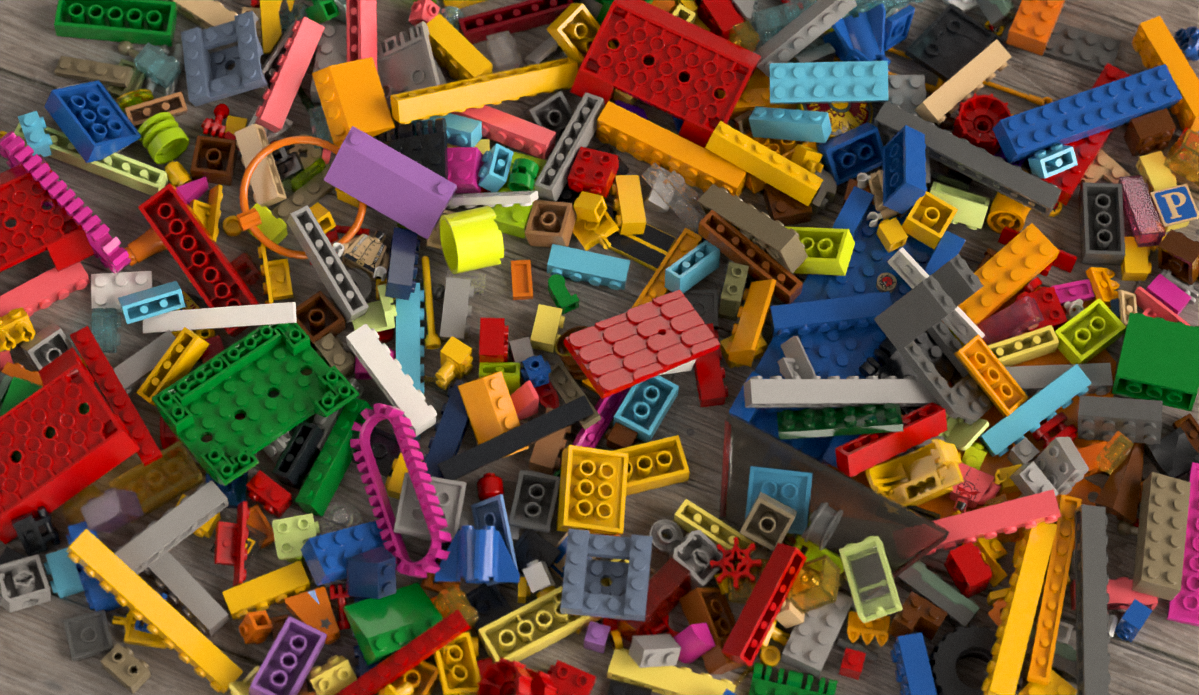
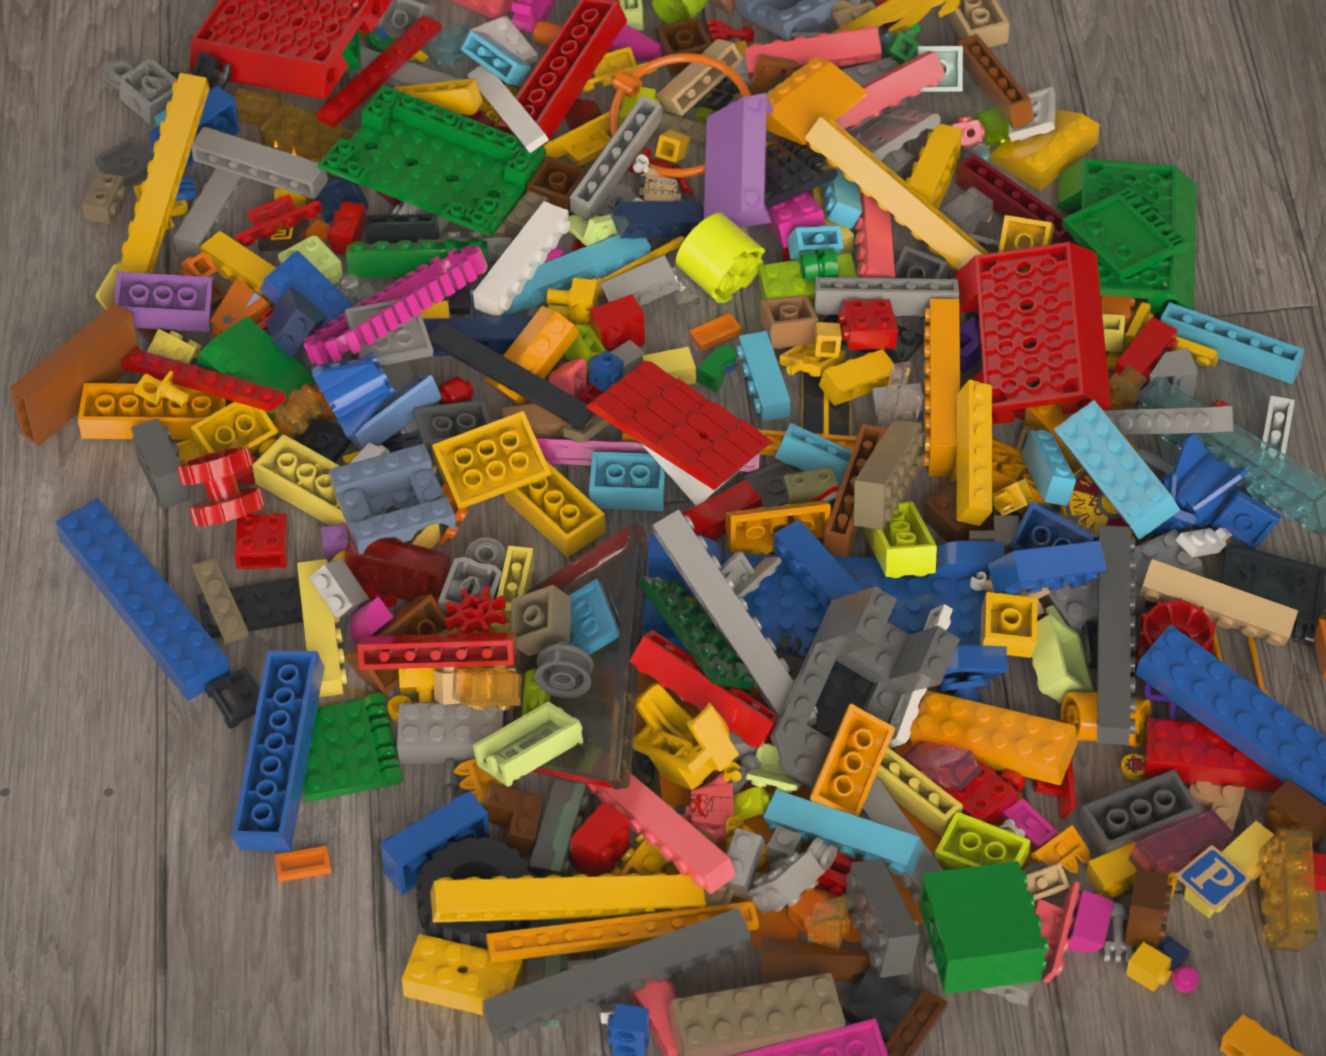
camera: 70 degrees right, 15 degrees down
(111, 510) = (249, 106): brick -> none
(177, 174) = (650, 25): yellow brick -> none
(295, 114) = (767, 73): none -> dark orange plate
(507, 199) = (776, 253): white plate -> none
(620, 437) = (579, 474): reddish brown brick -> none
(852, 663) = (427, 780): red brick -> none
(886, 282) = (907, 622): tile -> none
(891, 234) = (967, 602): yellow brick -> none
(903, 63) = (1203, 541): none -> white hinge
(1051, 431) = (823, 853): none -> light grey wheel
(1052, 161) = (1166, 712): medium azure brick -> none

